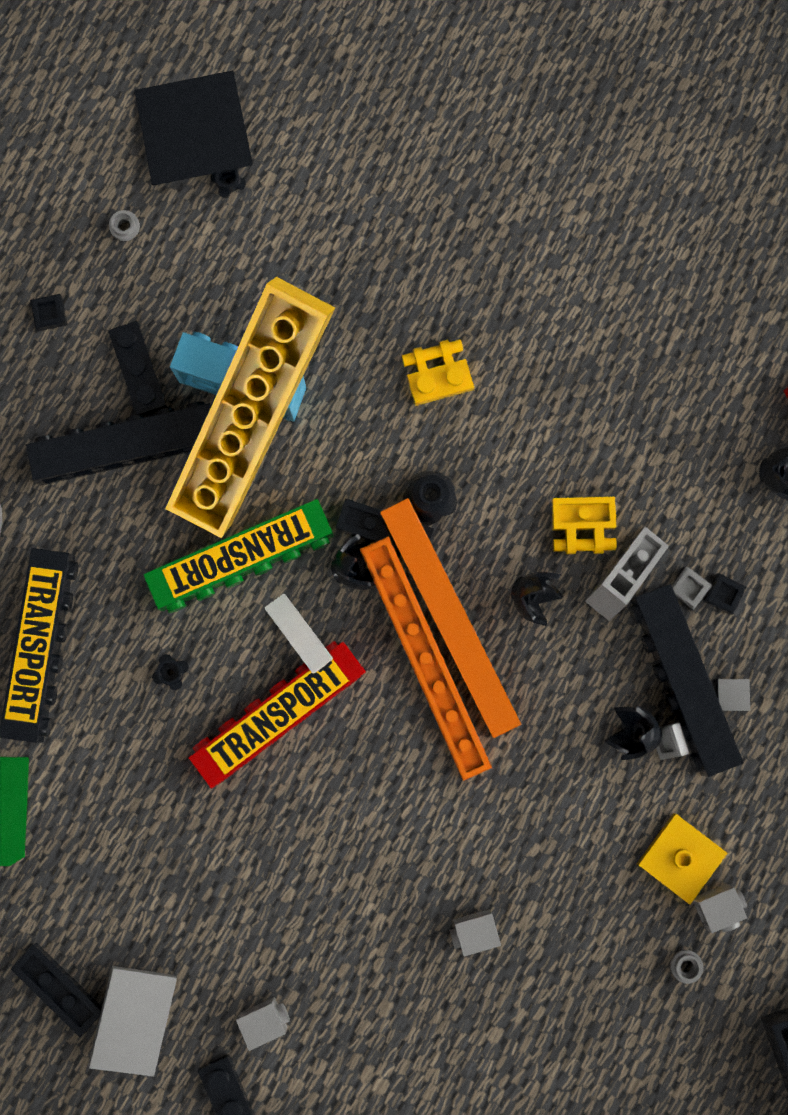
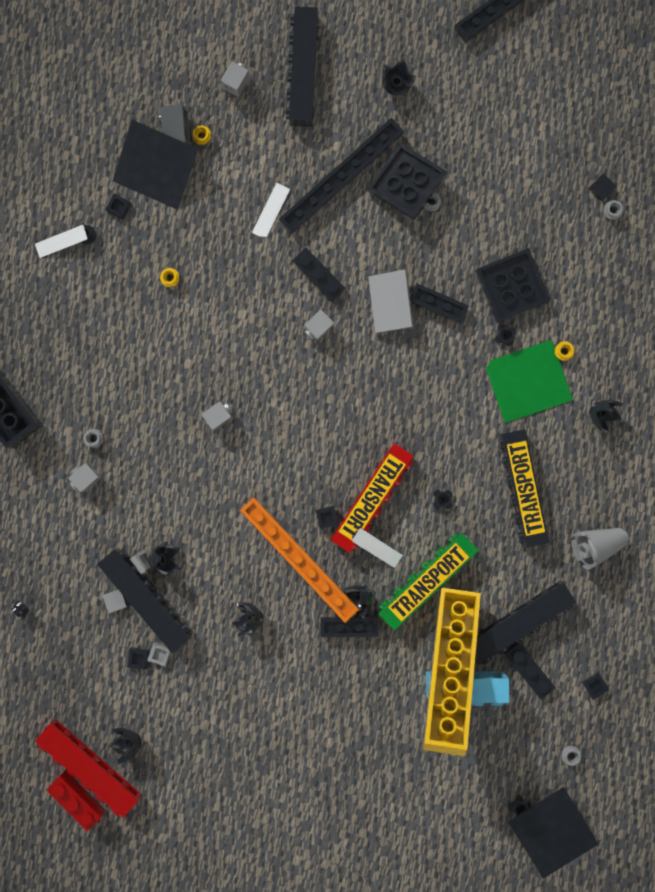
camera: 165 degrees right, 5 degrees up
(359, 708) = (326, 517): none -> black plate
(431, 510) = (325, 647): black piece -> none
(440, 381) = (347, 727): yellow plate -> none
(450, 618) = (293, 588): orange tile -> none
(584, 514) = (236, 676): yellow plate -> none
(627, 574) = (198, 649): light grey slope -> none
(682, 858) = (114, 497): yellow plate -> none

